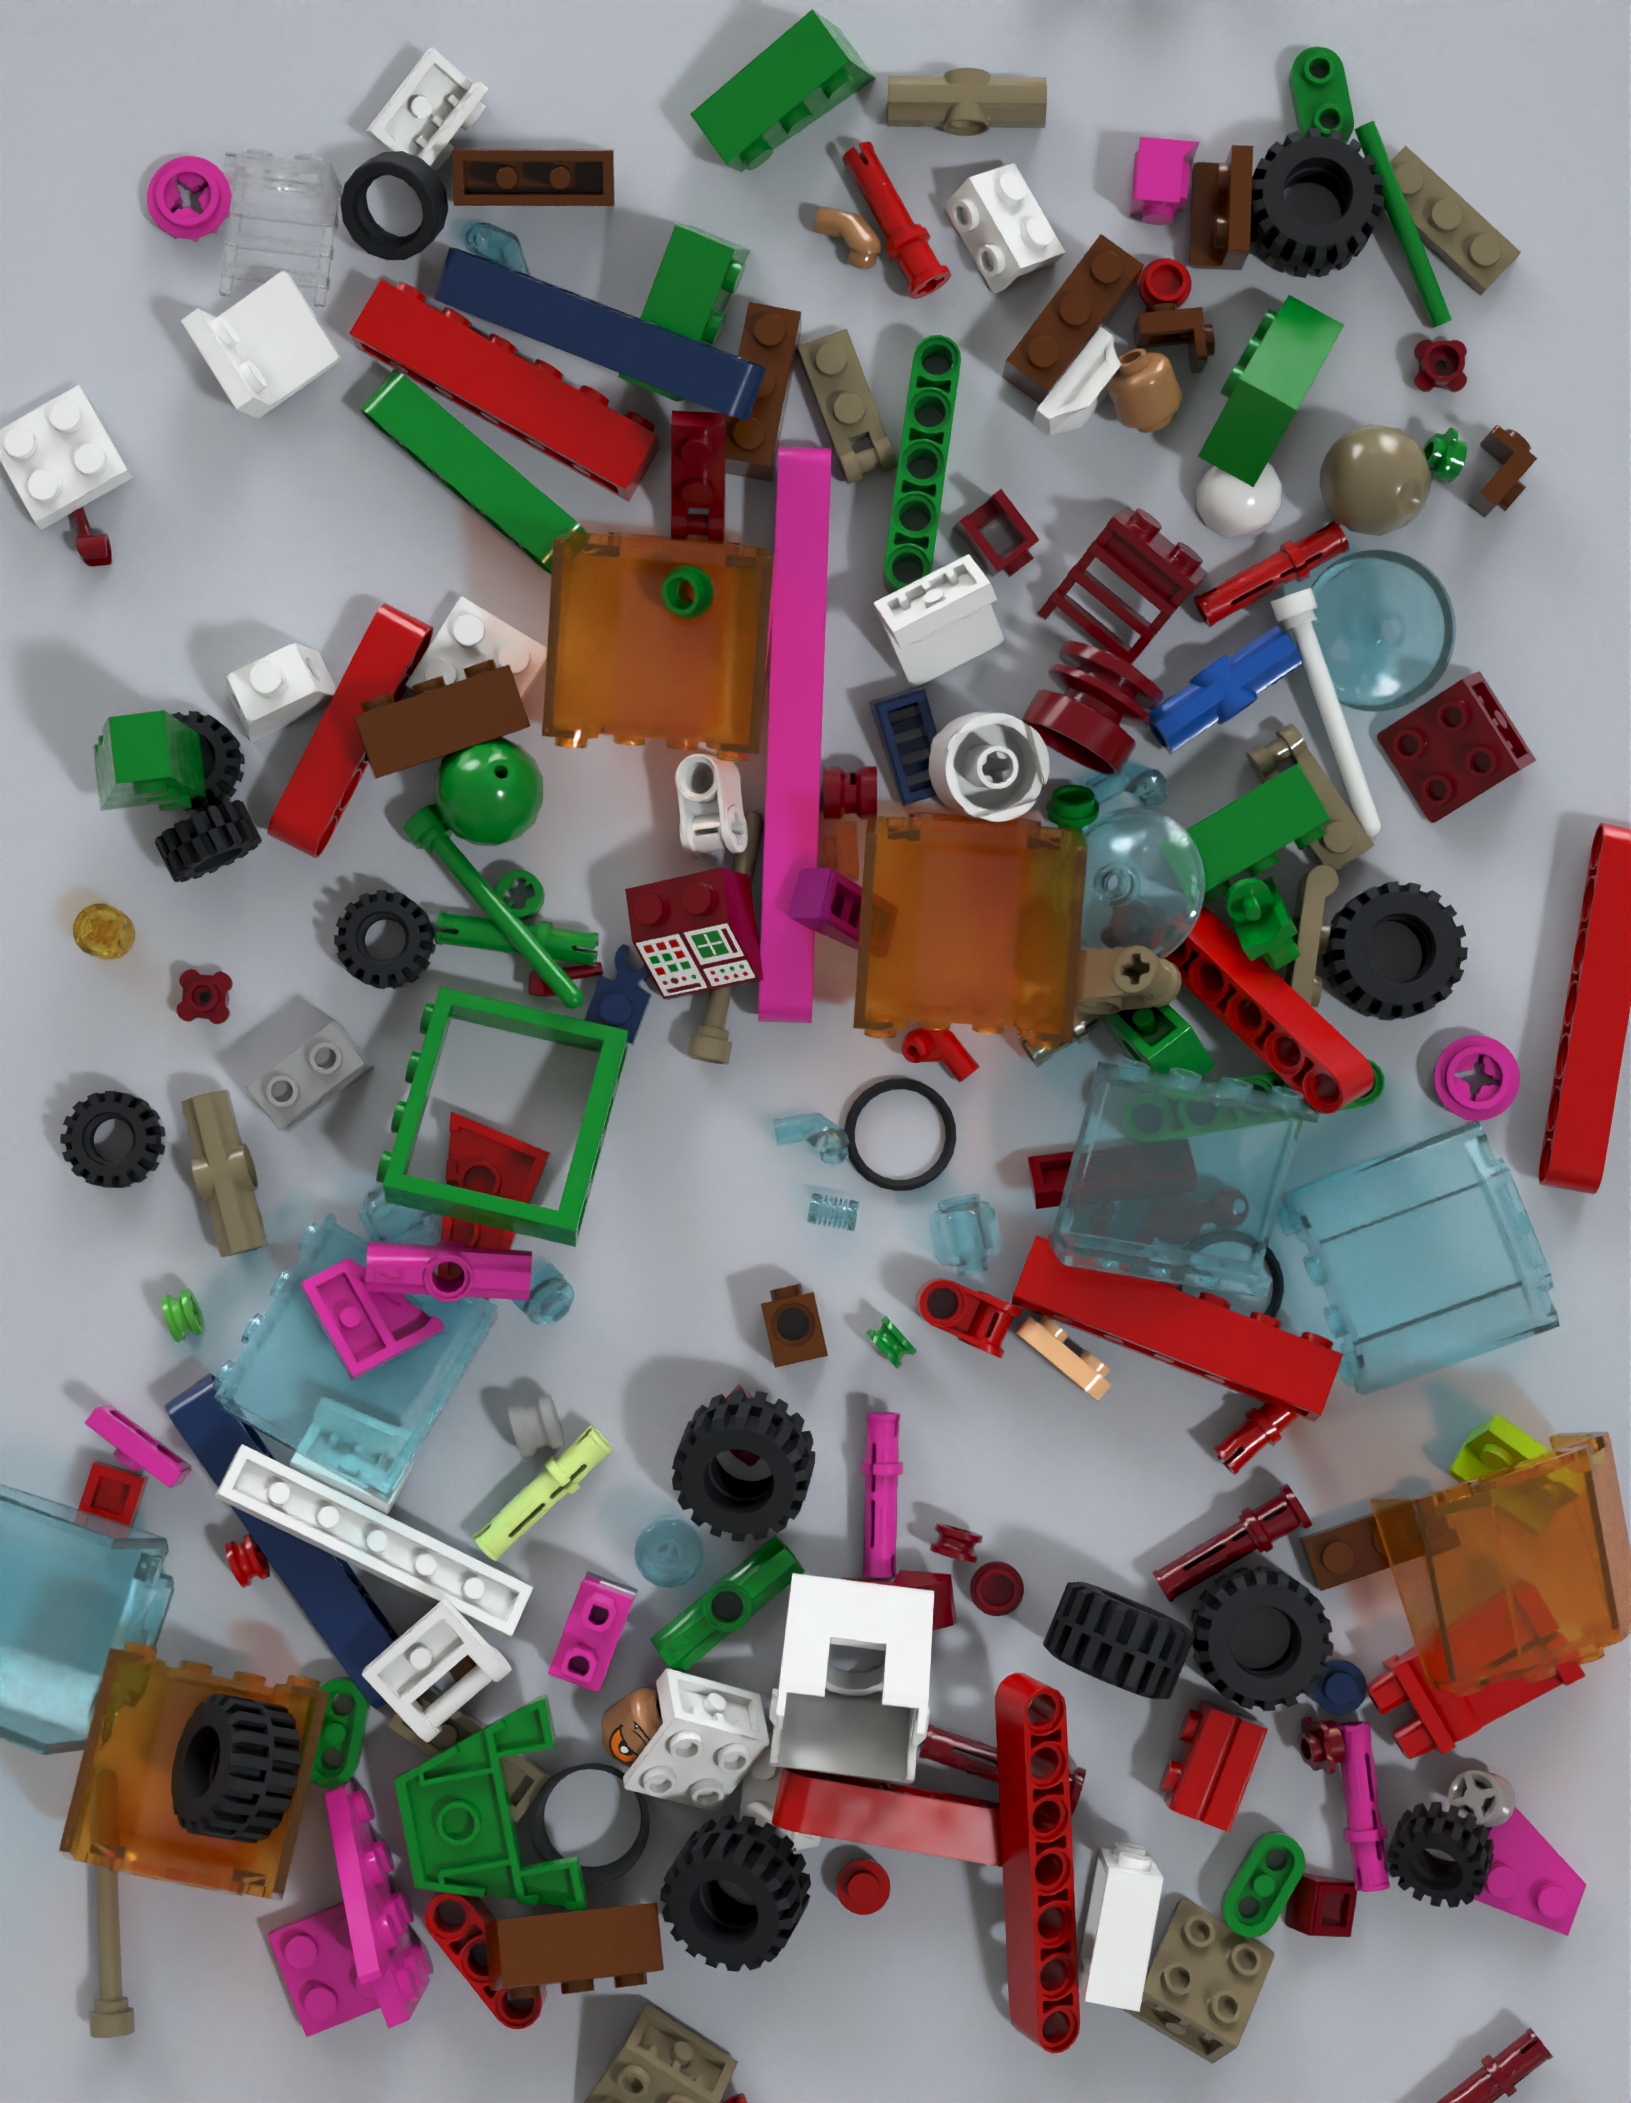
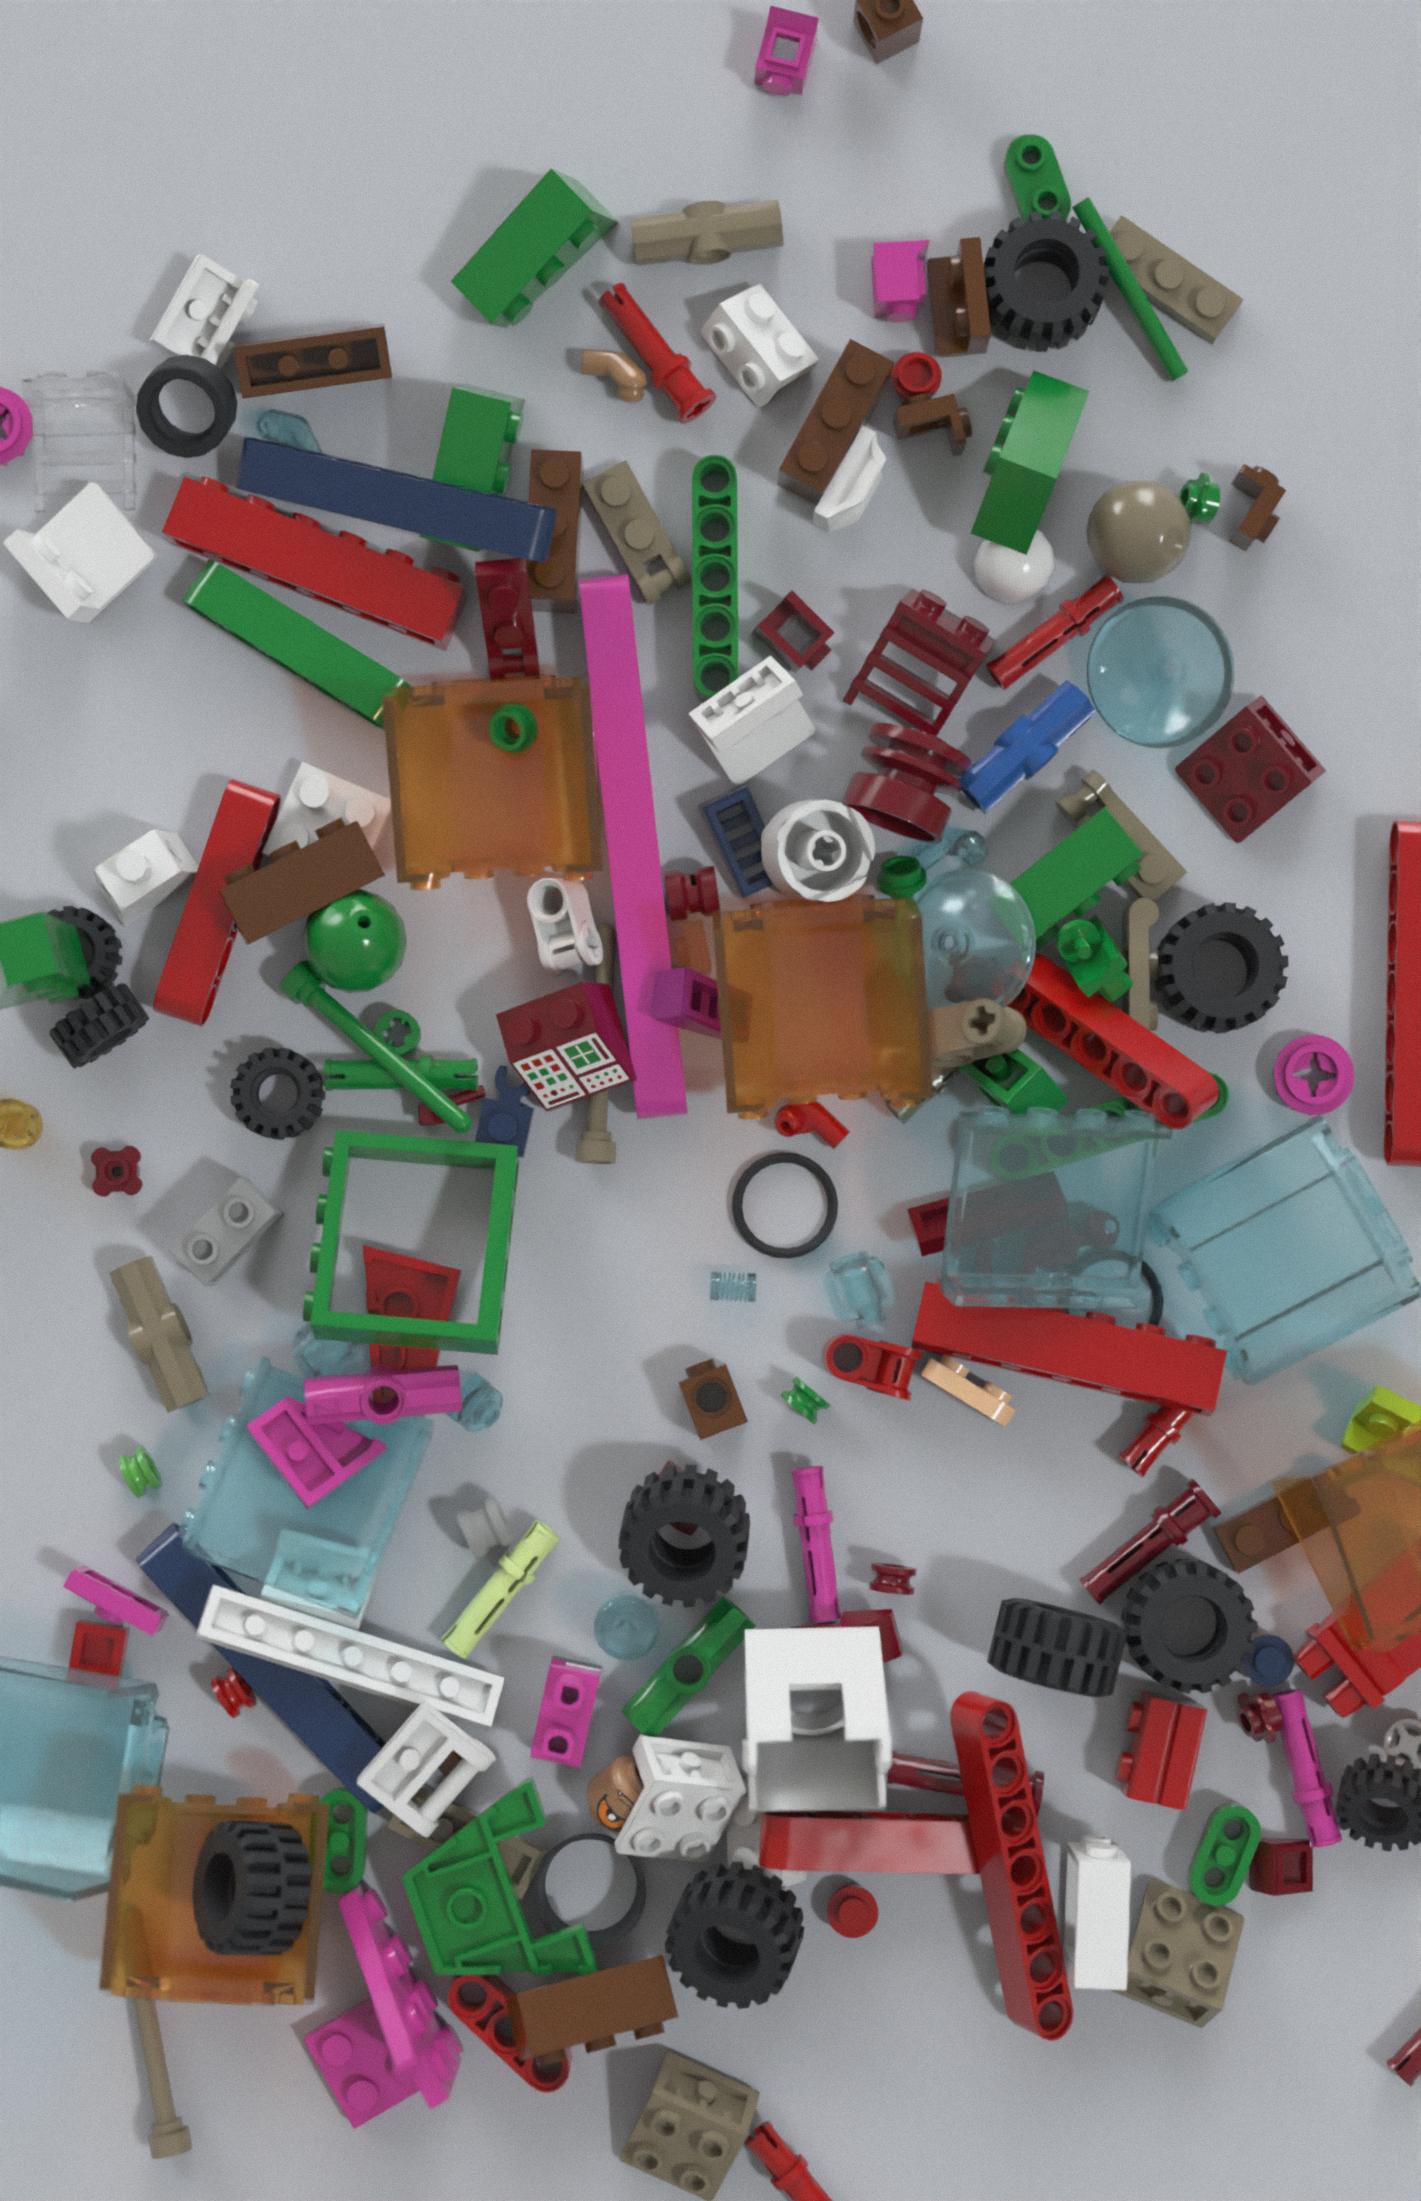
camera: 10 degrees left, 0 degrees up
(81, 1132) = (20, 1312): black tyre -> none
(817, 1131) = (707, 1213): clear light blue arm -> none
(996, 1588) = (936, 1615): dark red plate -> none
(1145, 391) = (912, 479): medium nougat head -> none
(1297, 613) = (1085, 667): white piece -> none
(1452, 354) = (1194, 405): dark red plate -> none

